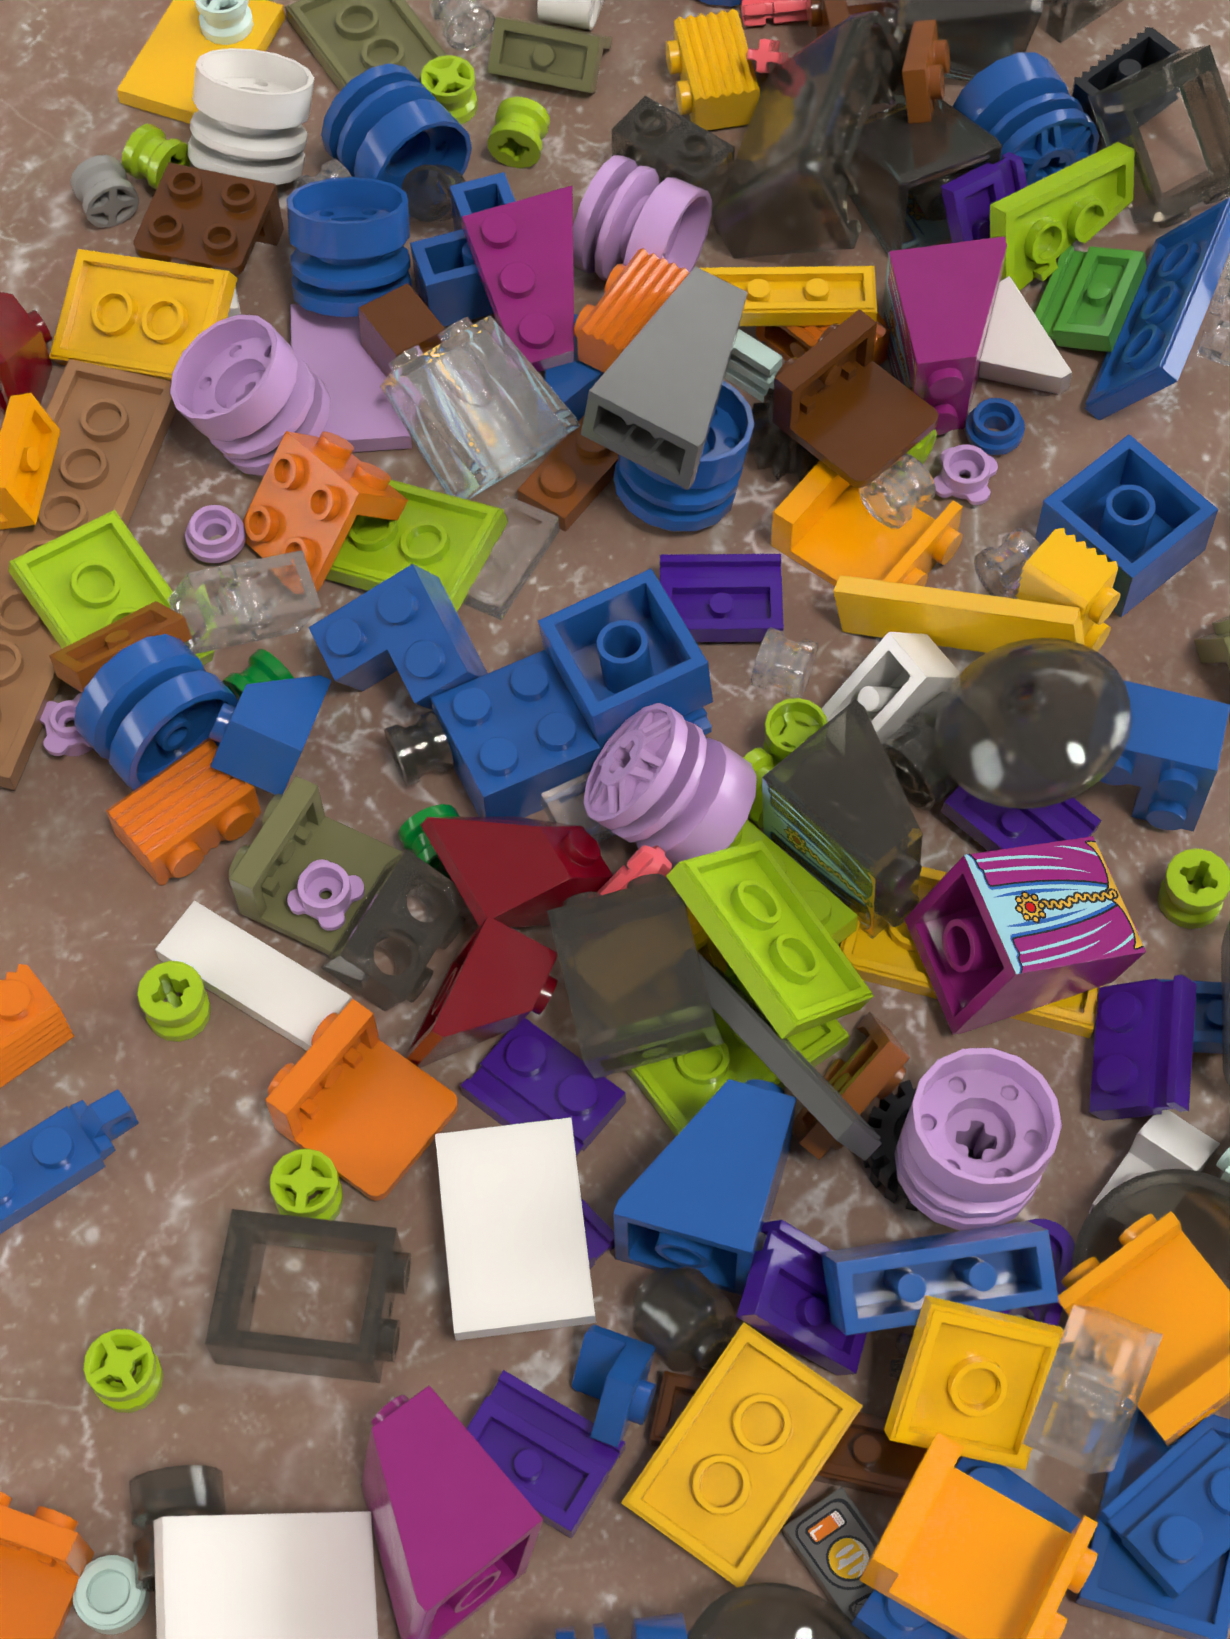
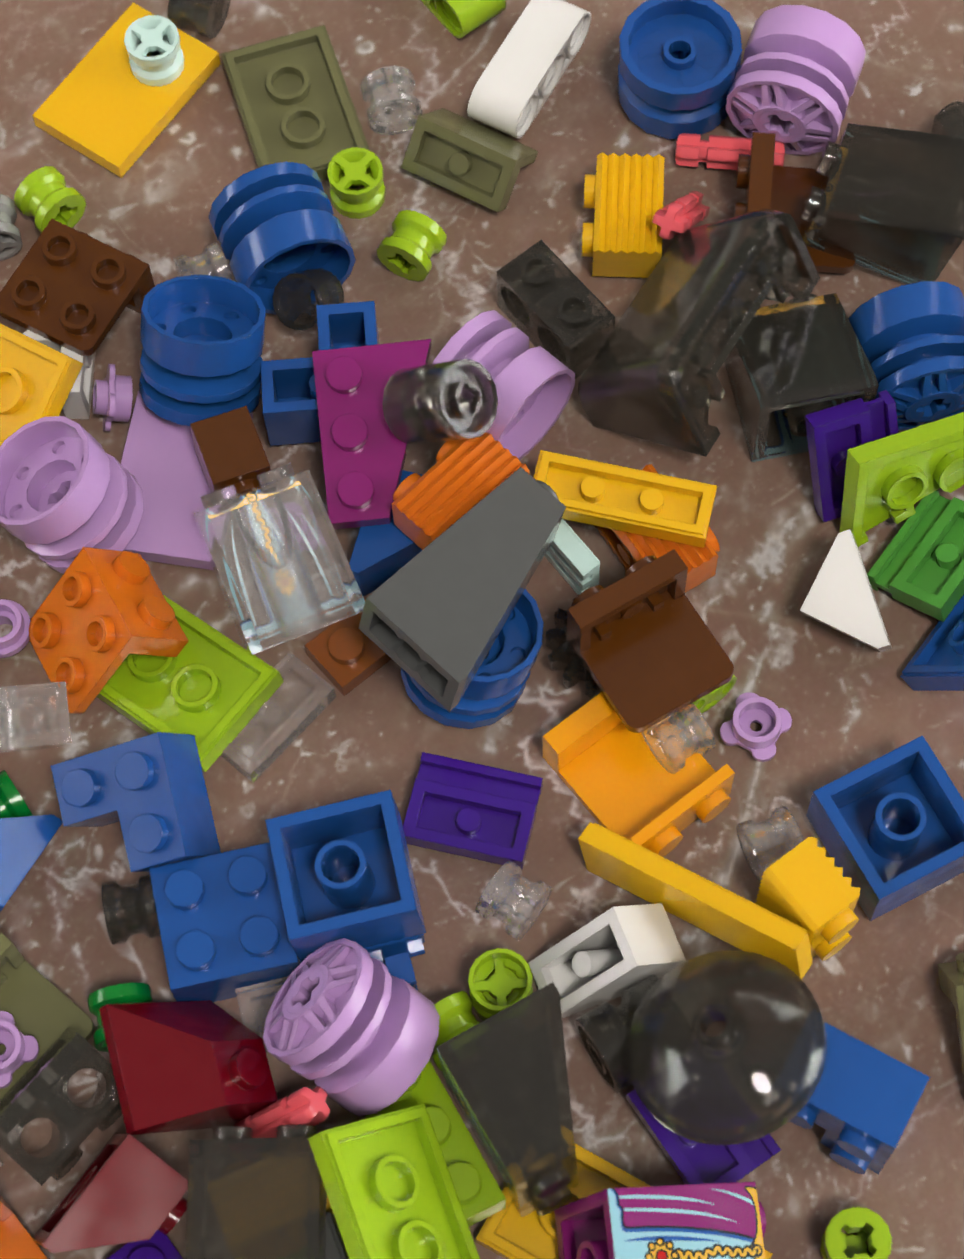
camera: 15 degrees right, 5 degrees up
(250, 114) = (143, 183): white wheel -> none
(271, 307) = (113, 397): none -> lavender plate
(600, 230) = (440, 402): none -> clear smoke wheel
(924, 71) = (826, 274): dark orange plate -> none
(939, 318) = (767, 564): magenta slope -> none
(995, 414) = (806, 664): blue plate -> none

